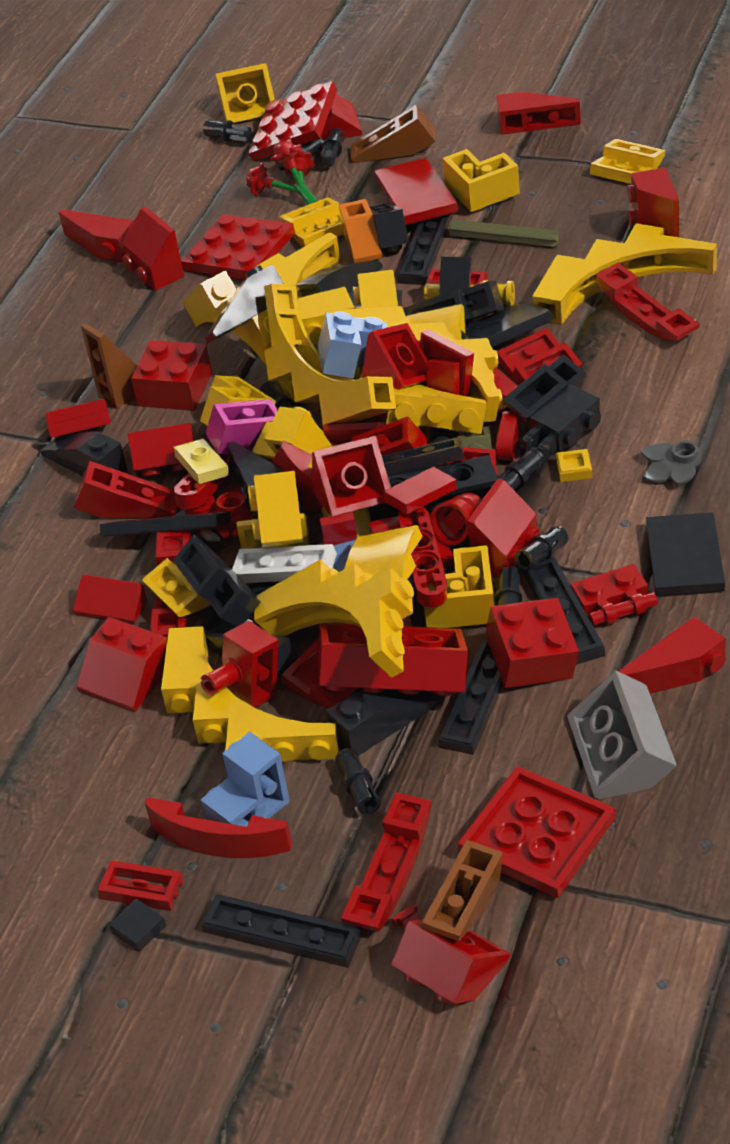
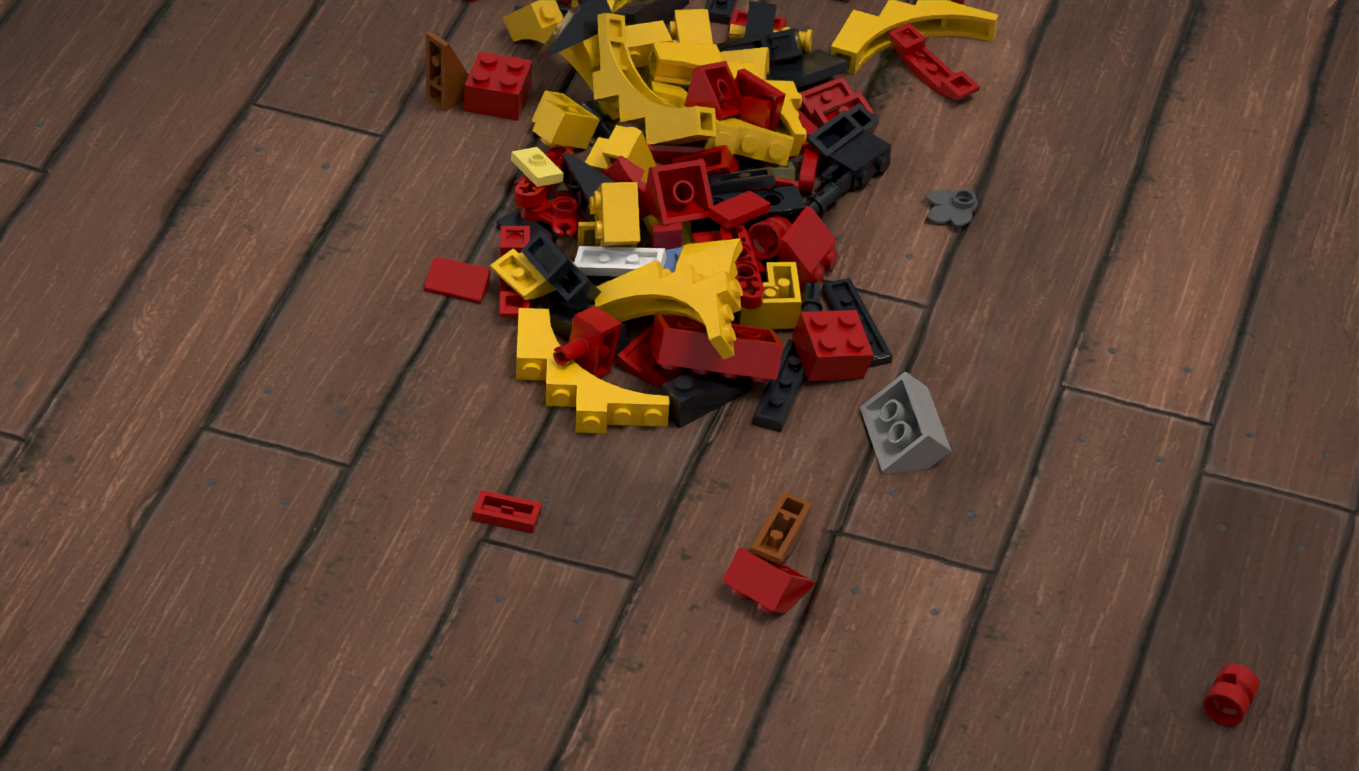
camera: 10 degrees left, 0 degrees up
(77, 418) = (412, 116): red slope -> none
(77, 449) = (425, 151): black slope -> none
(121, 495) = (460, 190): red slope -> none
(122, 664) = (477, 335): red slope -> none
(137, 925) = (507, 541): black tile -> none
(155, 448) = (493, 152): red slope -> none
(162, 524) = (505, 219): black tile -> none
(239, 423) = (573, 136): dark pink brick -> none
(253, 784) = (599, 443): medium blue brick -> none
(259, 839) = (570, 479): red slope -> none
(282, 930) = (627, 552): black tile -> none
(344, 342) = (669, 73): medium blue brick -> none
(357, 781) = (686, 444): black pin -> none
(391, 864) = (717, 507): red slope -> none
(405, 916) = (729, 550): red piece -> none
(540, 830) = (842, 491): red plate -> none
(541, 548) = (839, 269): black pin -> none
(573, 465) = (865, 202): yellow tile -> none
(614, 595) = (901, 314): red plate -> none
(679, 658) = (956, 368): red slope -> none
(685, 554) = (961, 285): black tile -> none

